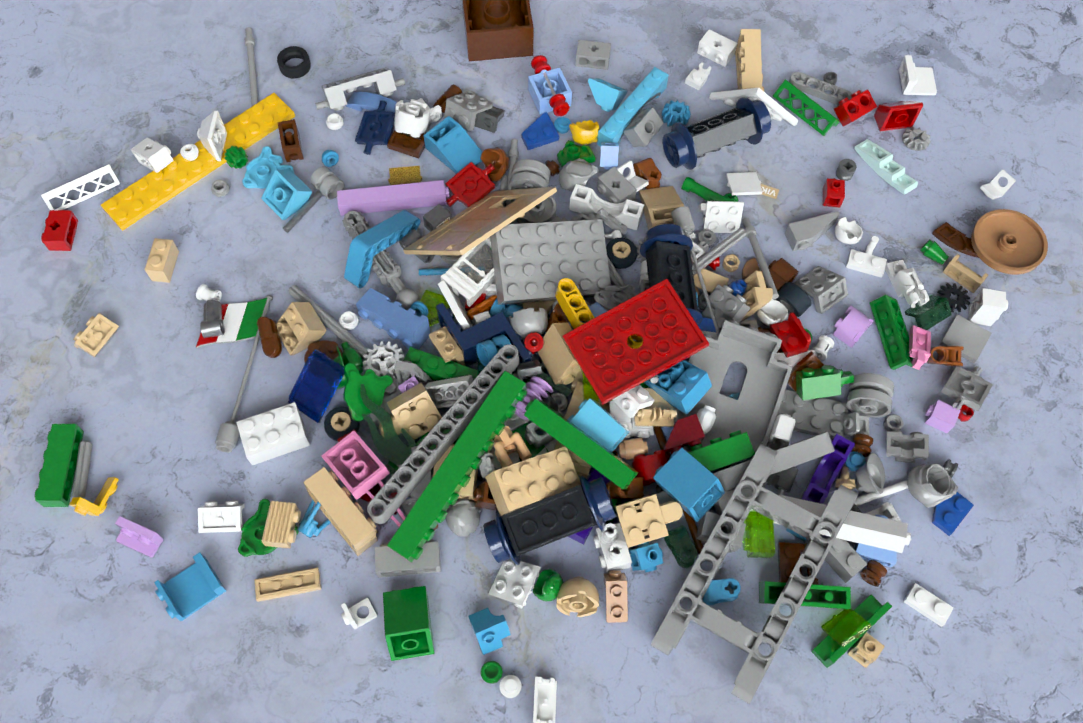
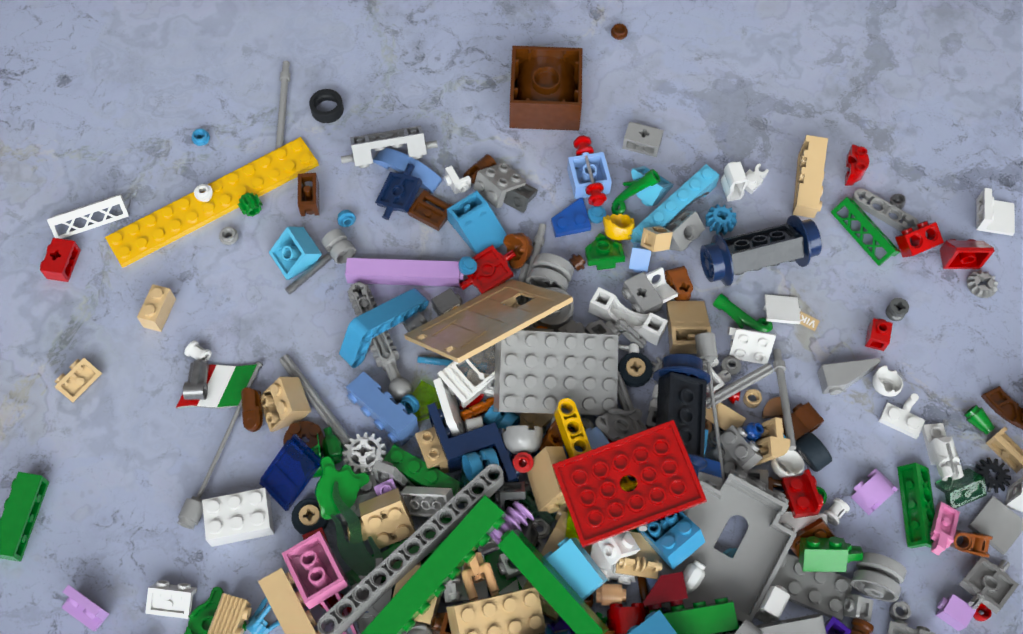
camera: 10 degrees right, 0 degrees up
(82, 469) = (40, 525): light grey axle -> none
(94, 509) = (52, 564): yellow bracket -> none
(152, 154) = (165, 190): white brick -> none
(177, 104) = (200, 133): none -> dark azure plate
(213, 134) = (230, 178): white slope -> none
(262, 169) = (275, 220): medium azure tile -> none
(334, 121) = (358, 178): white plate -> none
(349, 320) = (336, 402): white plate -> none
(404, 175) = (421, 249): clear yellow piece -> none
(411, 117) = (437, 187): white brick -> none
(451, 182) = (467, 265): none -> dark azure plate
(576, 173) = (601, 274): light grey helmet -> none
(592, 95) = (650, 179): none -> green plant
(621, 135) = (656, 238): none -> tan brick
(682, 78) = (734, 181): none -> white brick
(717, 48) = (778, 149): white brick -> none
(775, 110) = (804, 213): white tile -> none
(789, 51) = (858, 162): none -> red cylinder
(824, 286) = (848, 441): light grey bracket -> none
(885, 167) = (941, 311): light aqua slope -> none

